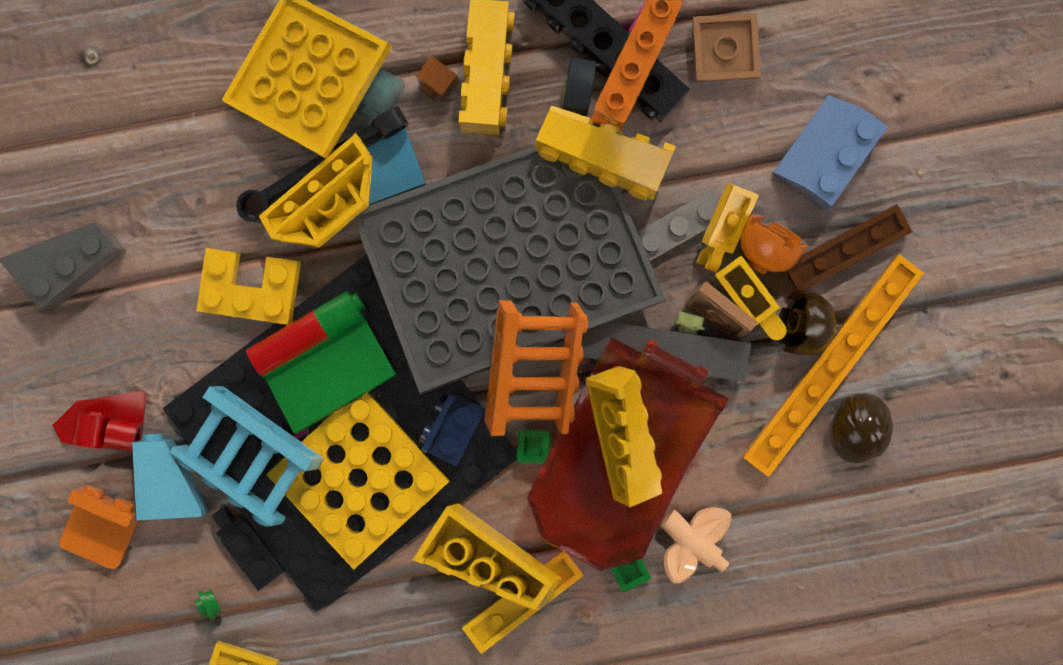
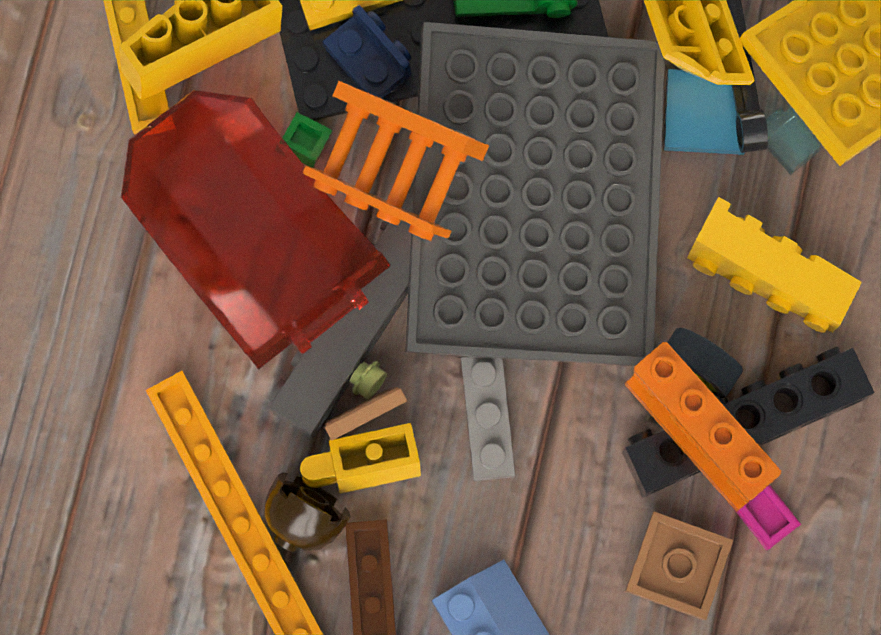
camera: 120 degrees right, 10 degrees down
(436, 79) = (782, 208): dark orange plate -> none
(604, 152) = (610, 354): yellow wedge -> none
(624, 435) = (270, 234): yellow wedge -> none
(631, 575) = (107, 186): green plate -> none
(695, 542) = (110, 274): light nougat plant -> none
(726, 225) = (464, 469): yellow plate -> none
(770, 246) = (416, 512): orange cylinder -> none
(861, 428) = (151, 527): dark brown piece -> none

